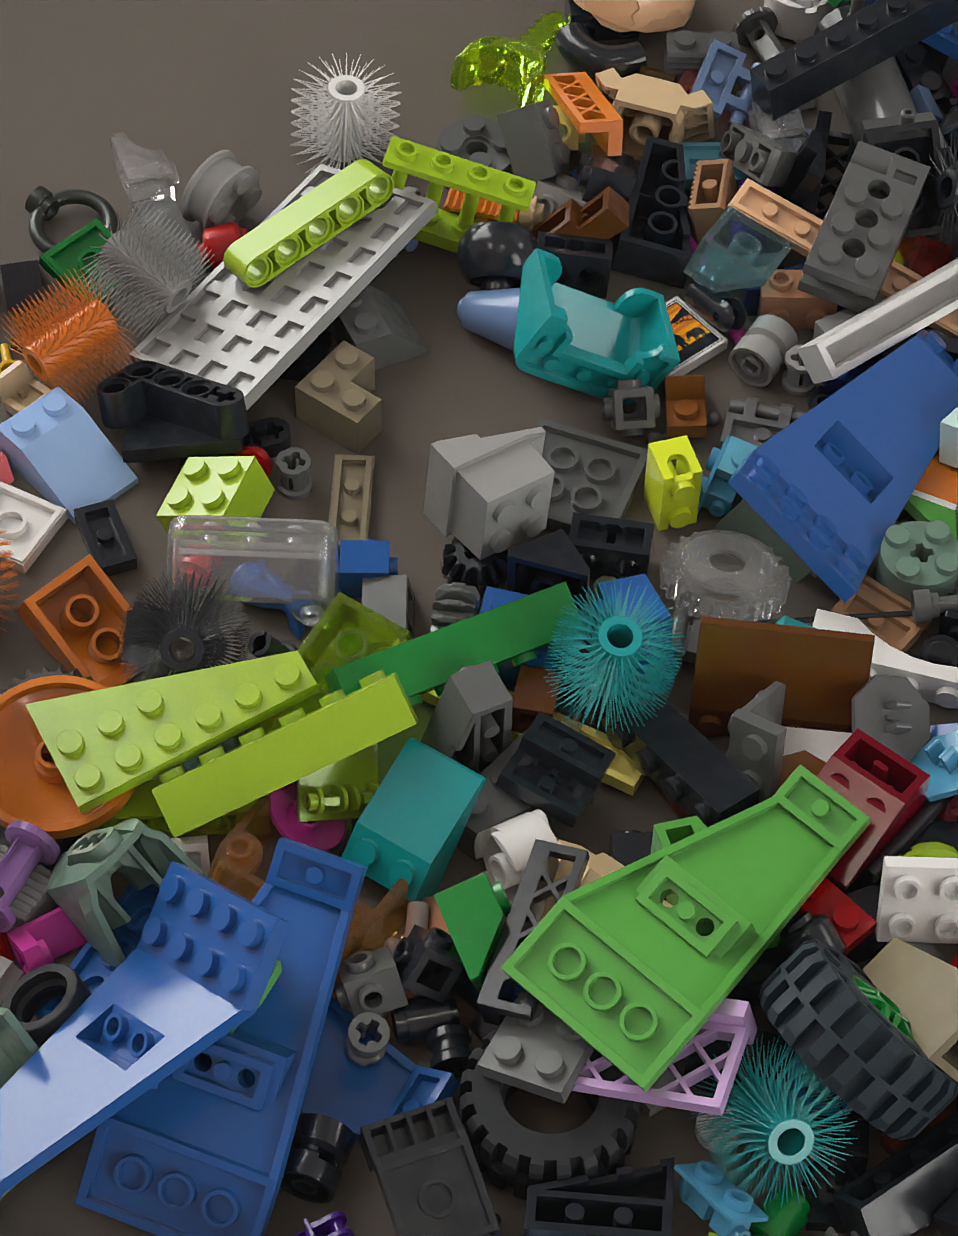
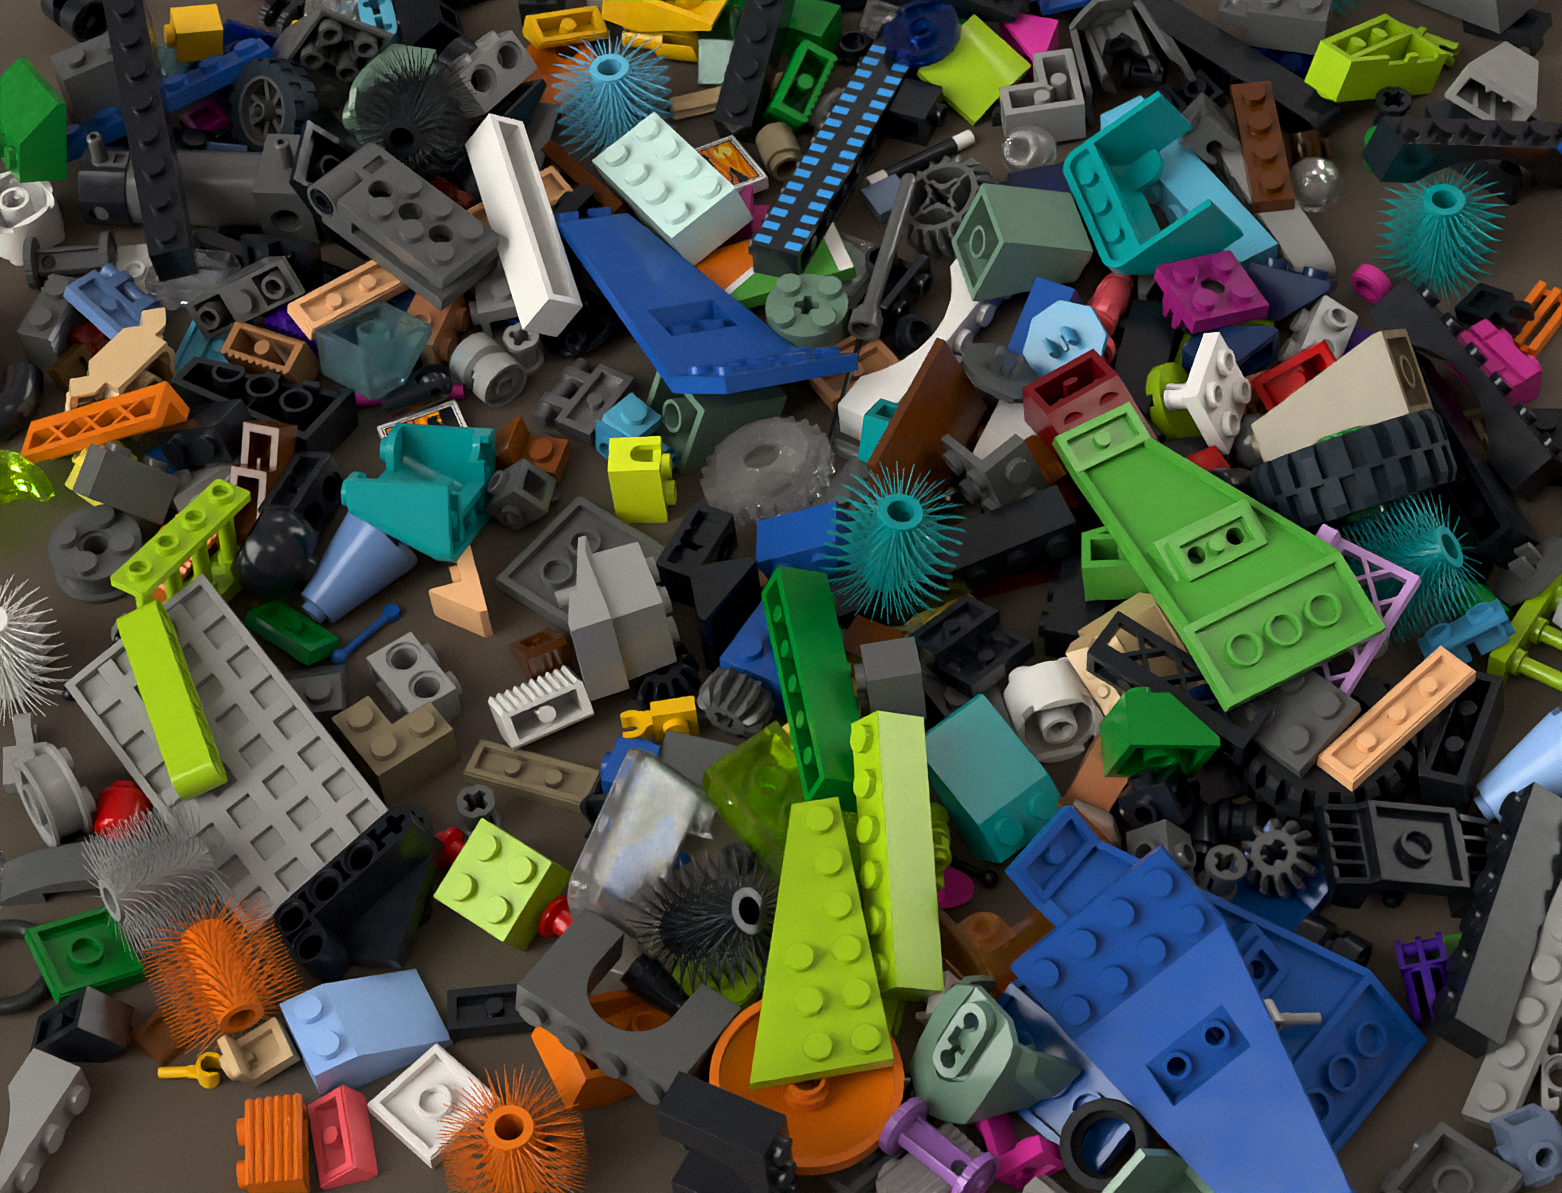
camera: 65 degrees left, 0 degrees up
(83, 553) = (557, 999): none -> dark grey arch
(188, 1096) = (1287, 1019): none -> light grey hand
(275, 178) = (25, 749): none -> light grey plate
(399, 1083) = (1280, 874): none -> dark grey gear
(400, 478) = (540, 707): none -> white brick
(414, 394) = (411, 674): none -> light grey brick
(426, 568) = (670, 714): none -> yellow plate
(439, 301) = (292, 632): none -> green plate
(489, 364) = (390, 614): none -> blue hinge
(517, 407) = (463, 600): none -> light nougat slope
(575, 1143) = (1396, 718): none -> light nougat tile

